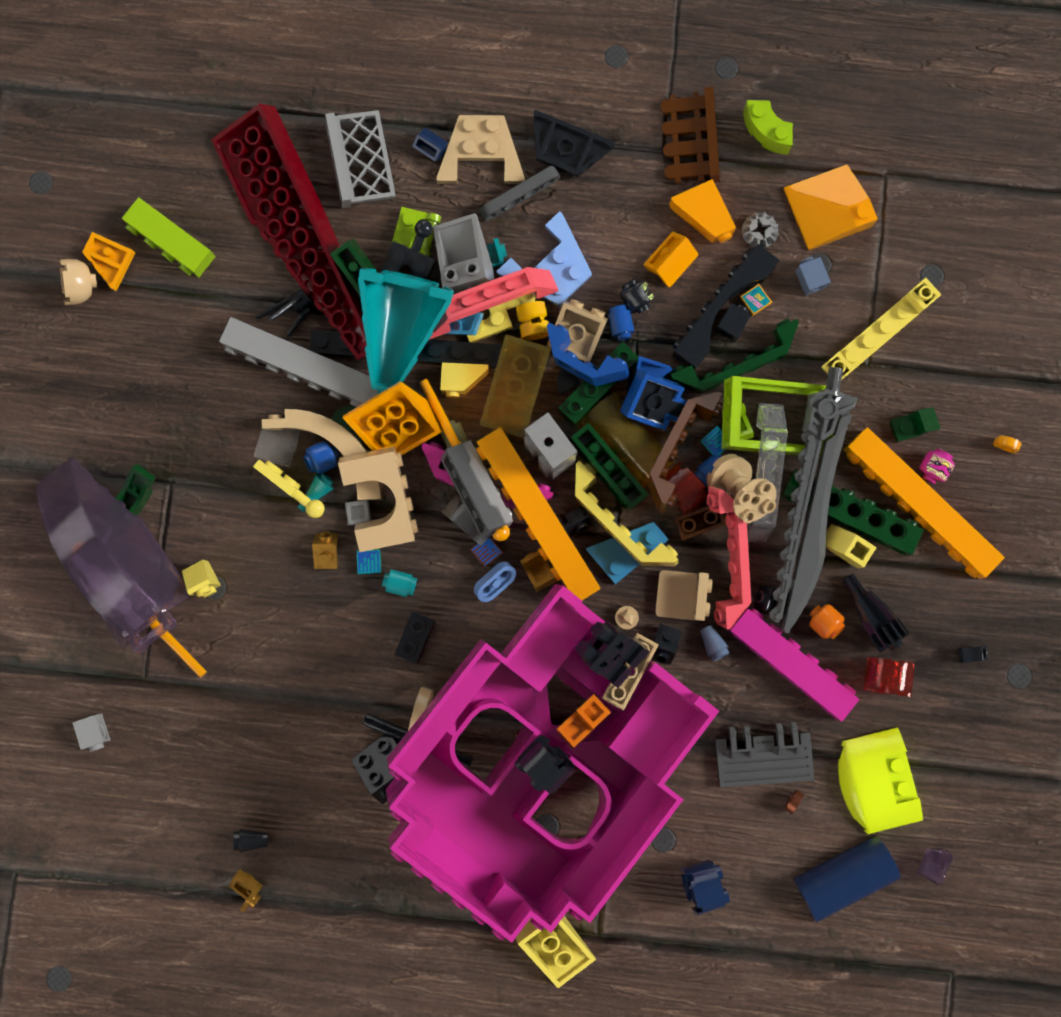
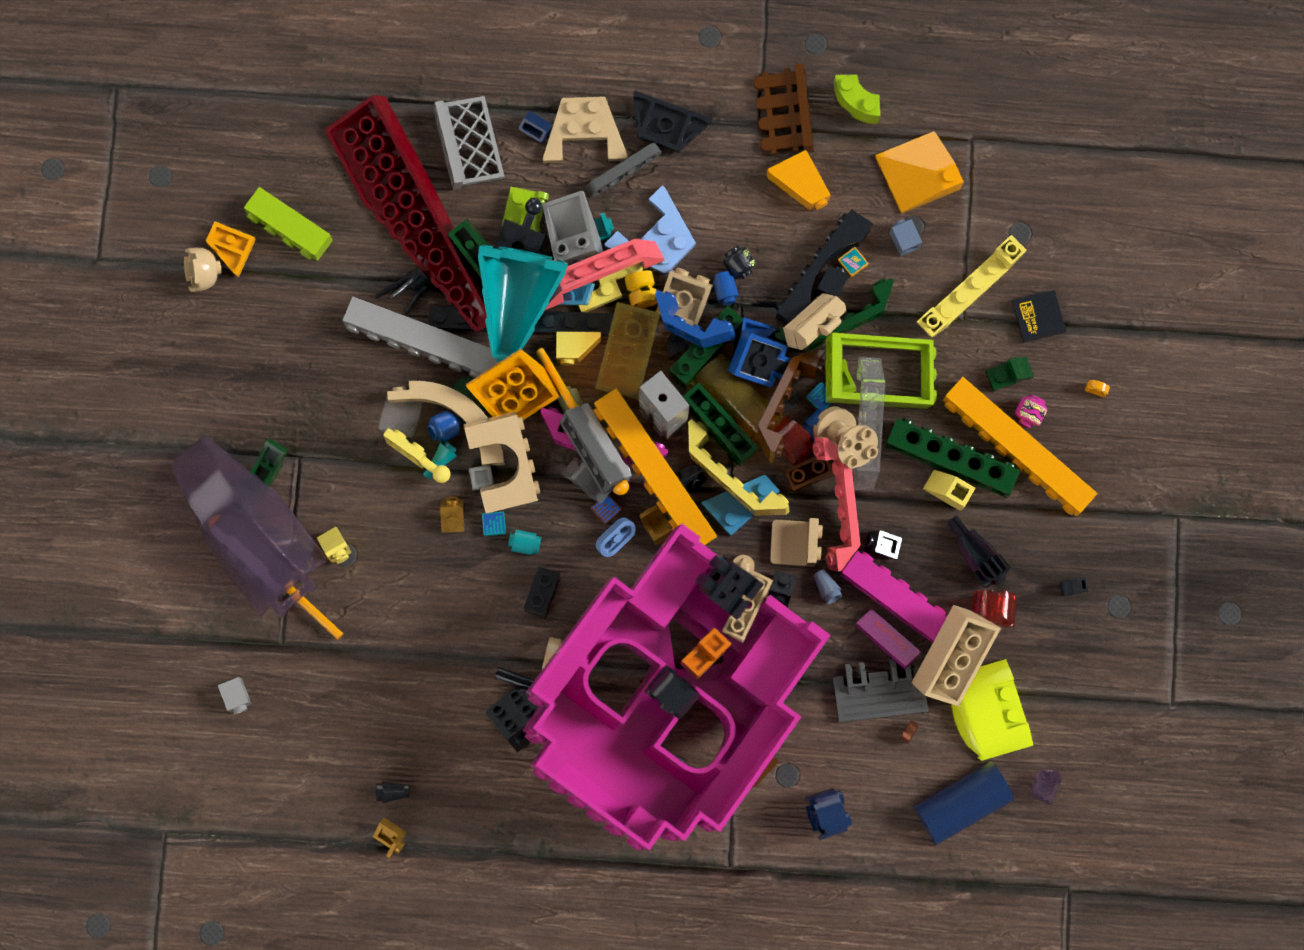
camera: 10 degrees left, 5 degrees down
(556, 953) = (687, 876): light yellow slope -> none
(671, 258) = (771, 226): light orange panel -> none
(716, 360) = (816, 319): none -> tan piece
(754, 238) = (863, 200): light grey gear -> none
(776, 702) = (888, 639): none -> magenta tile
(819, 423) = (916, 373): dark grey piece -> none
(826, 621) = (933, 561): orange head -> none
(848, 727) = (955, 656): none -> tan slope
(948, 365) = (1038, 316): none -> black tile

